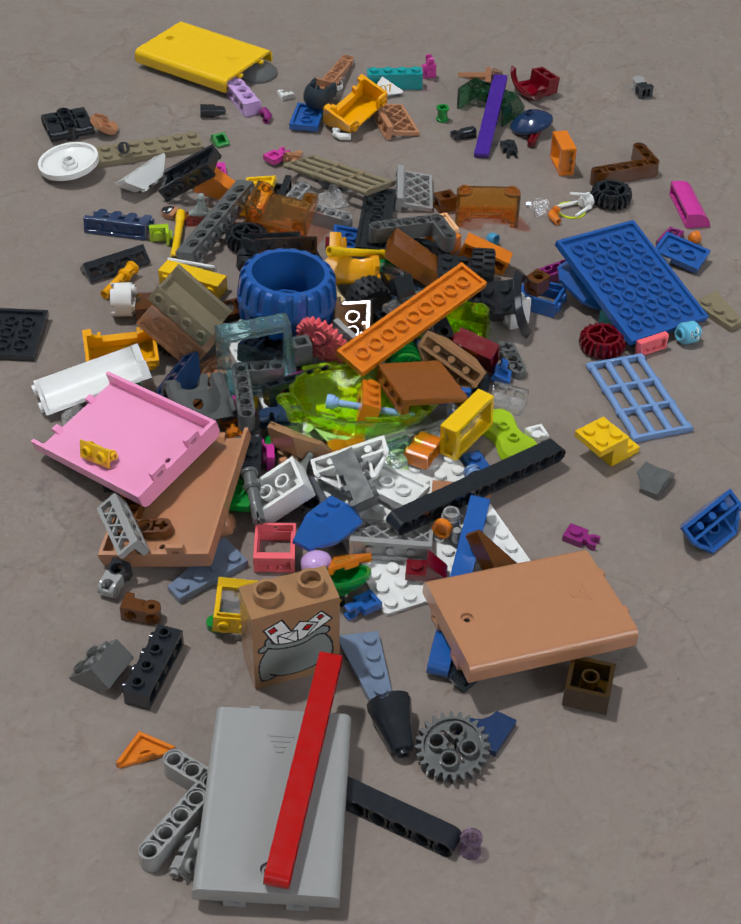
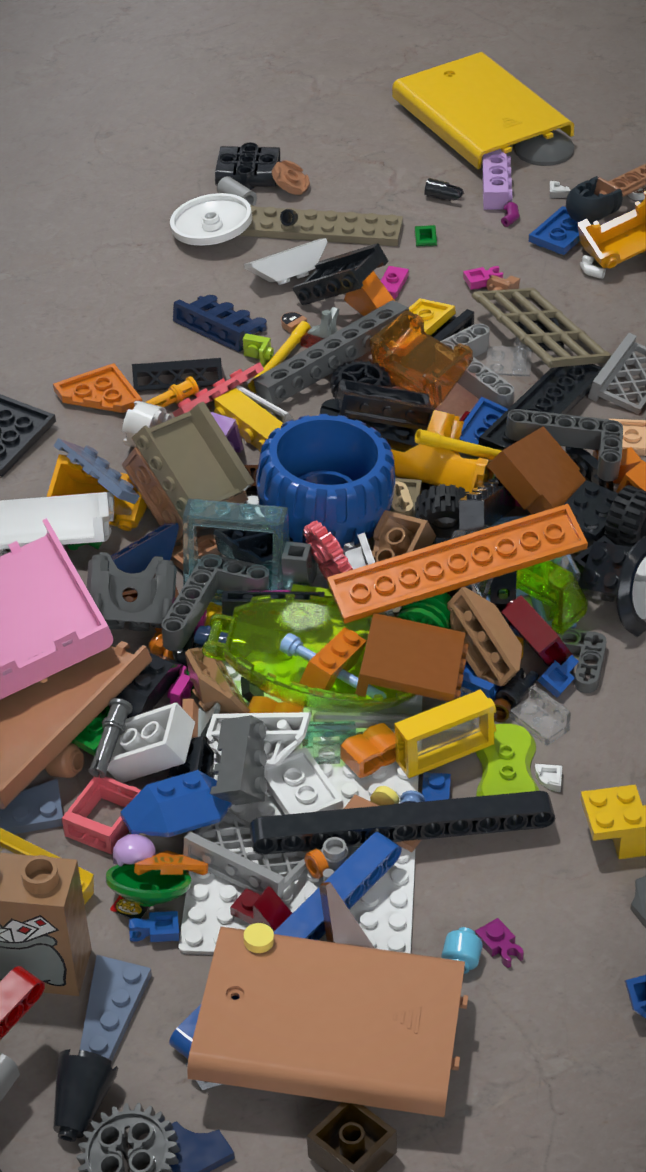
camera: 30 degrees right, 0 degrees up
(63, 138) = (231, 186): none -> light grey brick
(67, 286) = (99, 389): none -> orange plate
(114, 330) = (99, 469): none -> sand blue wing
(154, 263) = (220, 388): none -> coral wing
(454, 474) = (384, 796): none -> light yellow tile
(457, 579) = (258, 938): none -> light yellow tile
(564, 544) = (463, 946): none -> medium azure head

